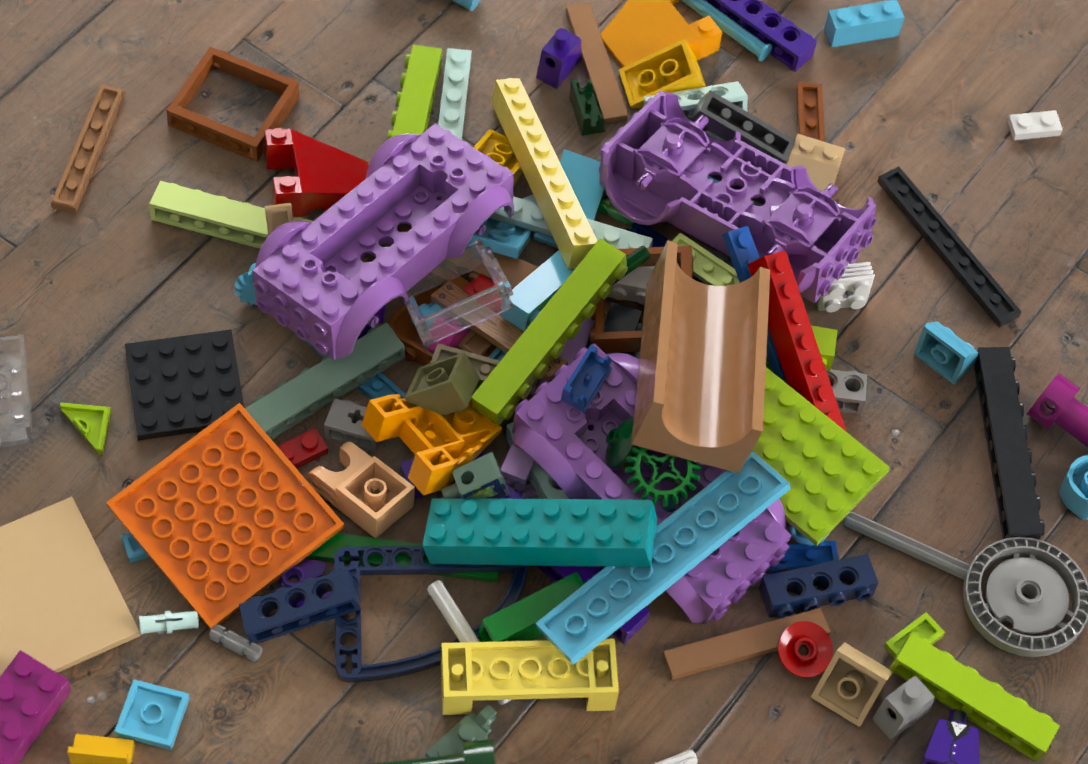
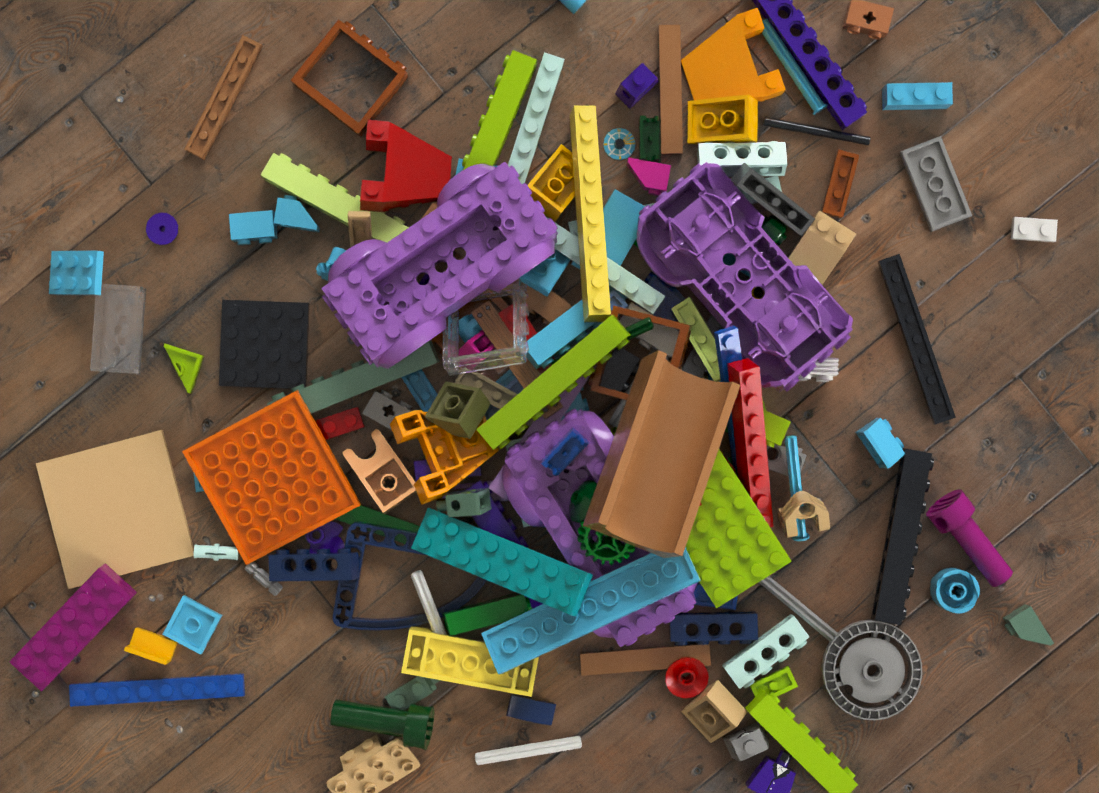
camera: 15 degrees right, 30 degrees up
(37, 285) = (162, 228): none -> dark purple piece
(149, 262) = (252, 227): none -> medium azure brick
(198, 244) = (294, 215): none -> medium azure slope
(555, 121) = (619, 144): none -> medium azure piece
(591, 135) = (650, 175): none -> dark pink slope
(620, 729) = (530, 709): none -> dark blue slope
(766, 74) = (818, 131): none -> black piece
(866, 406) = (795, 480): none -> medium azure axle
(901, 435) = (792, 510): none -> tan piece
(913, 102) = (935, 184): none -> light grey tile
(913, 569) = (797, 639): none -> light aqua brick

